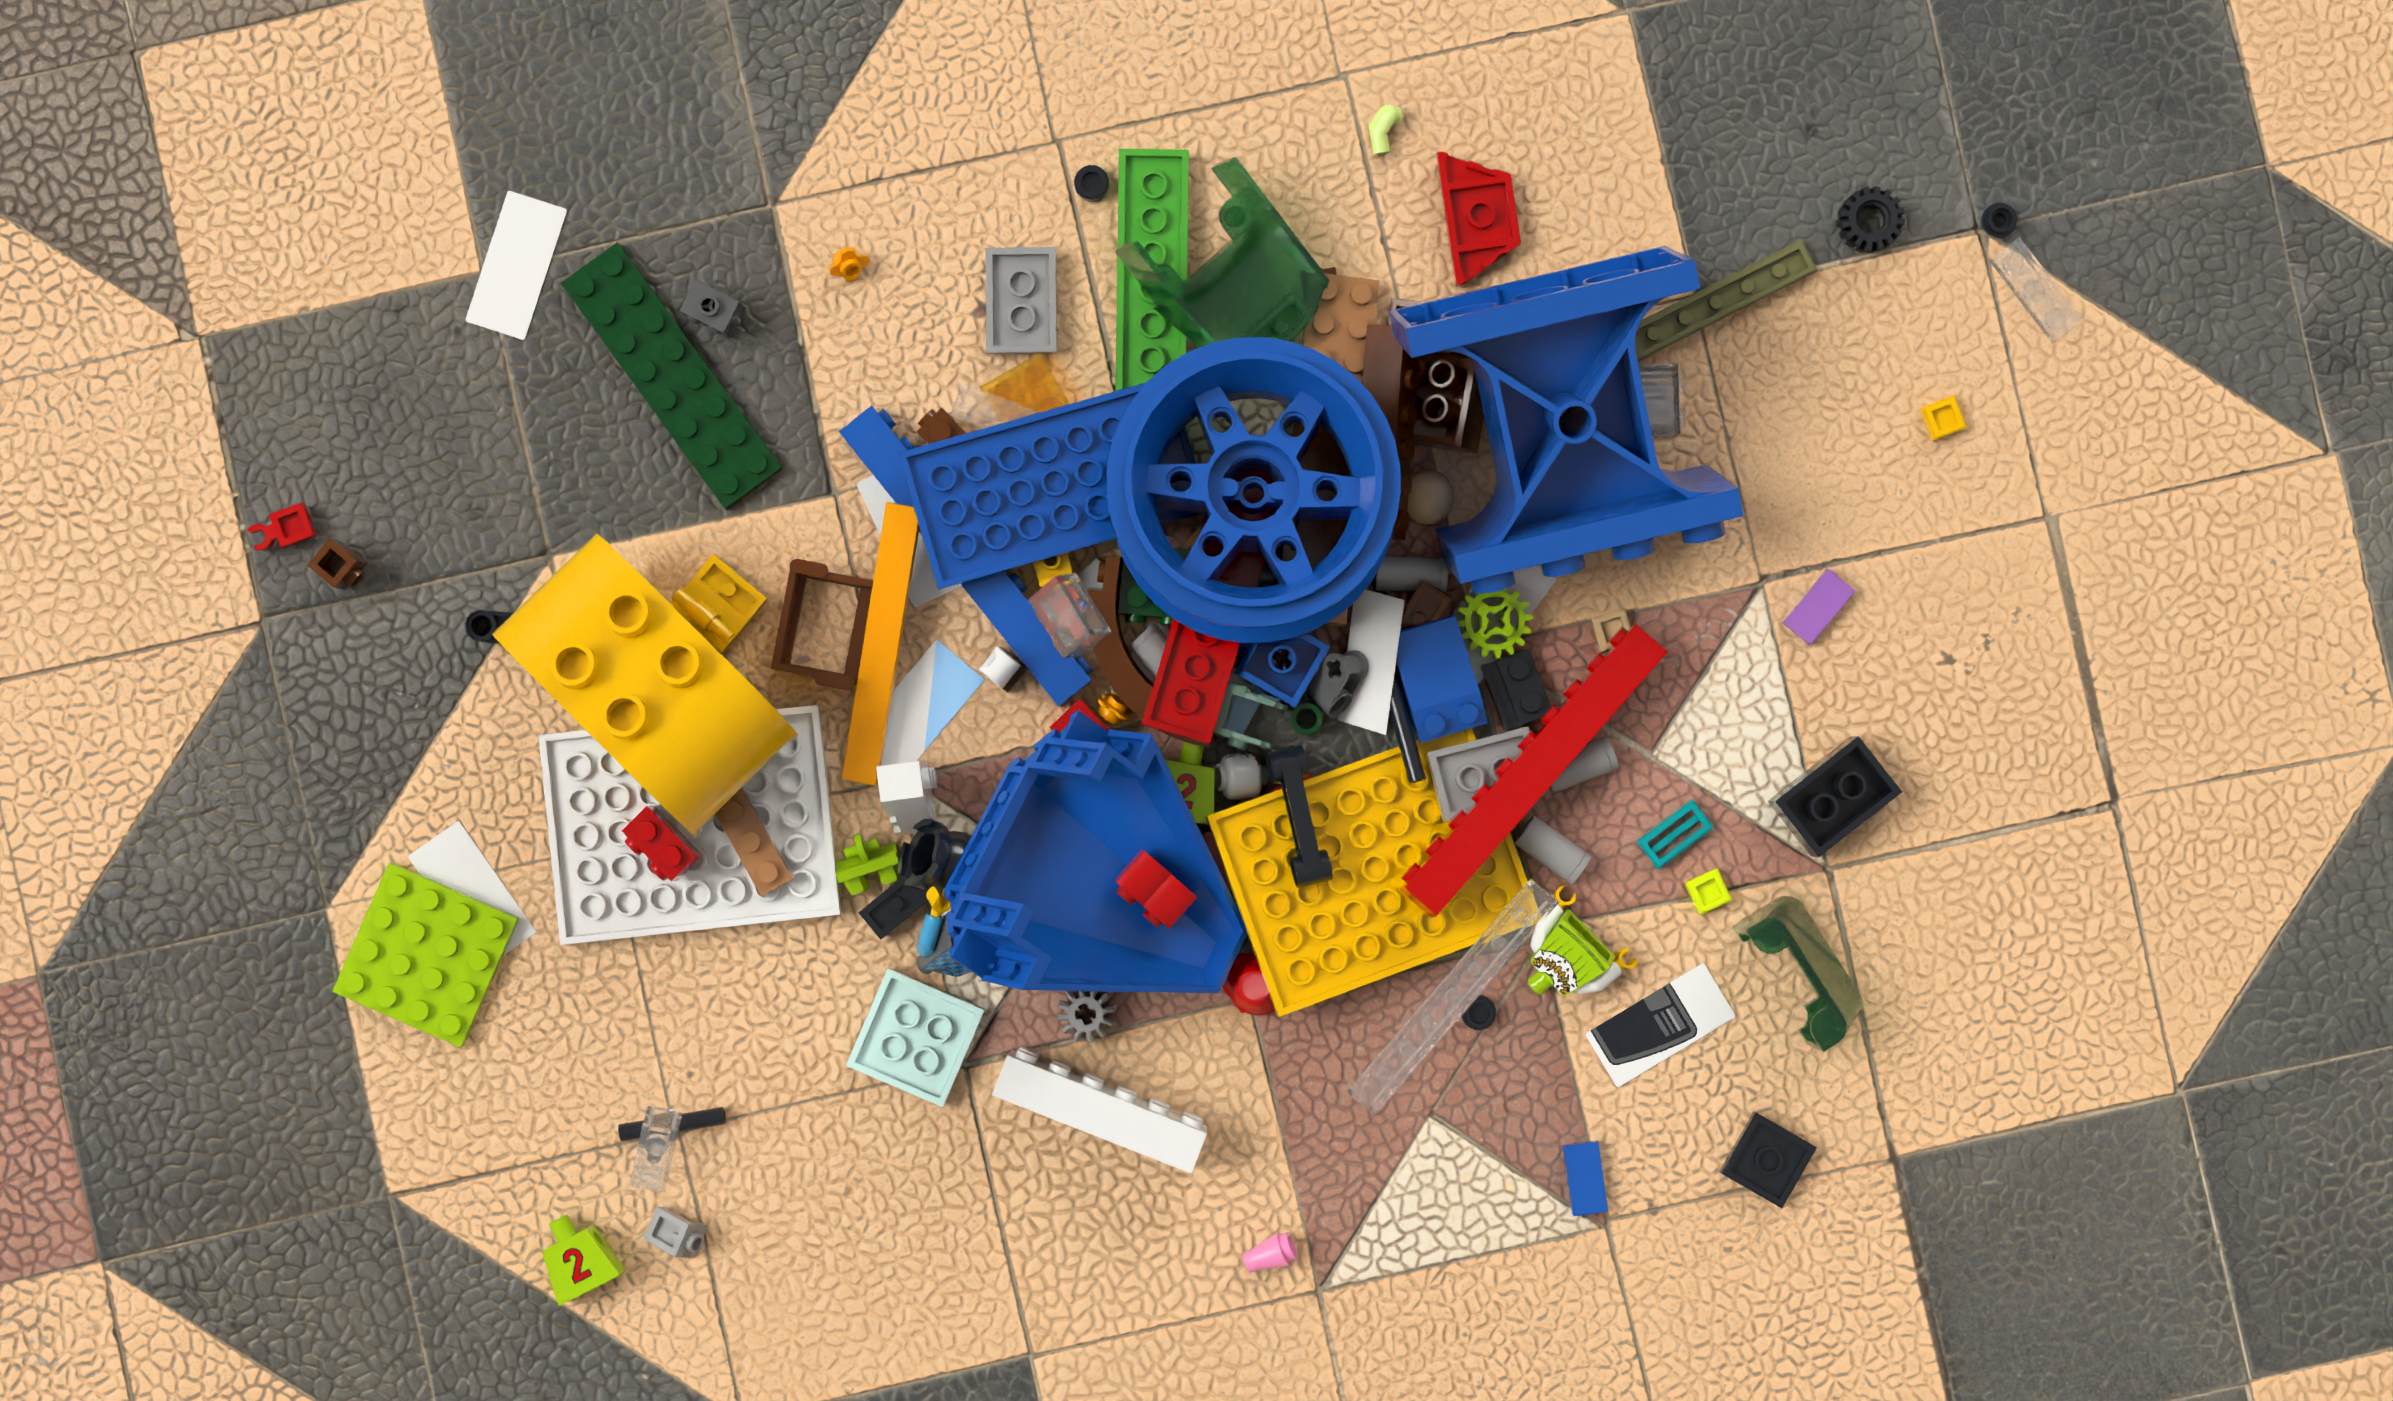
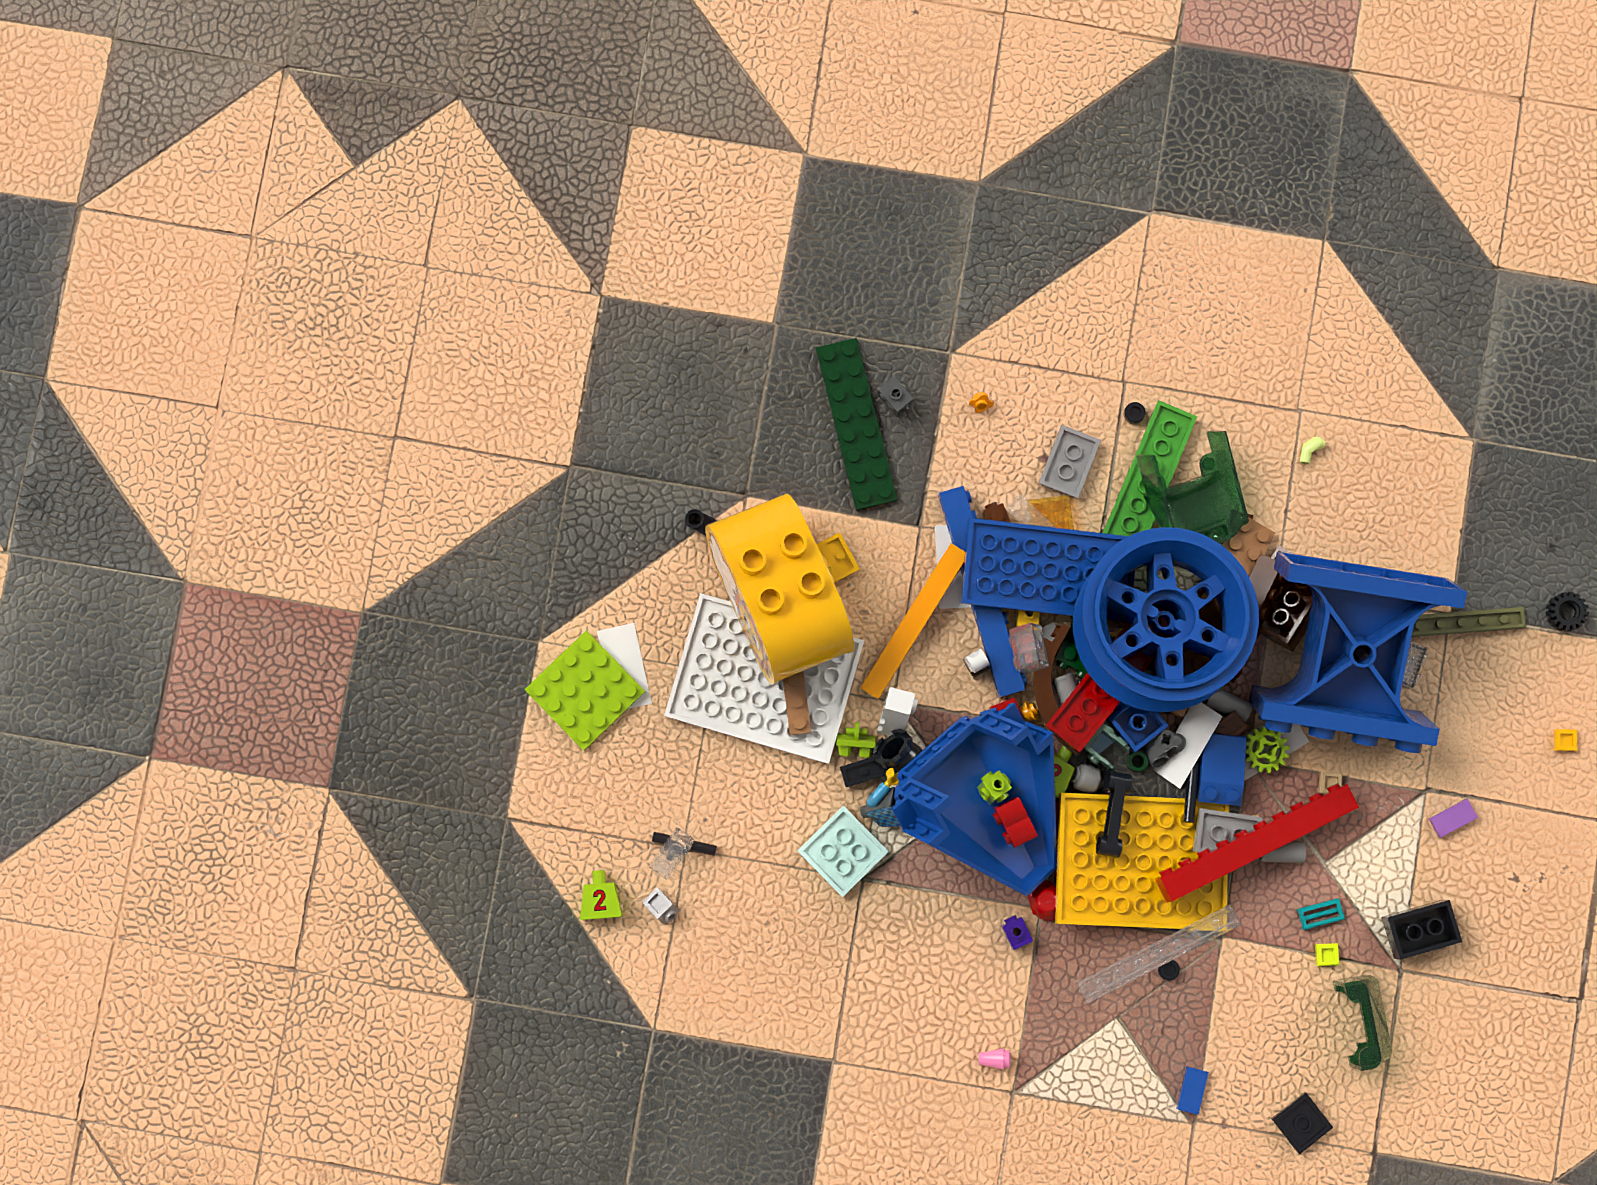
camera: 15 degrees right, 5 degrees down
(288, 527) = (609, 420): red plate -> none
(338, 565) = (628, 452): reddish brown brick -> none
(516, 265) = (793, 327): white sticker -> none
(662, 843) = (748, 686): red brick -> none
(789, 620) = (895, 566): reddish brown piece -> none
(927, 703) = (925, 664): sticker -> none
(1079, 1022) = (939, 882): light grey gear -> none
(1099, 861) = (989, 791): none -> lime brick
(1100, 1109) = (933, 935): white brick -> none
(1240, 1057) = (1020, 940): none -> dark purple brick
(1430, 497) = (1256, 666): tan hair -> none
(1477, 215) = (1345, 518): red wing -> none
(1516, 690) = (1262, 794): black plate -> none
(1552, 849) = (1248, 893): light grey pin -> none
(1572, 955) = (1235, 958): torso -> none
(1660, 1025) = (1269, 1020): sticker -> none

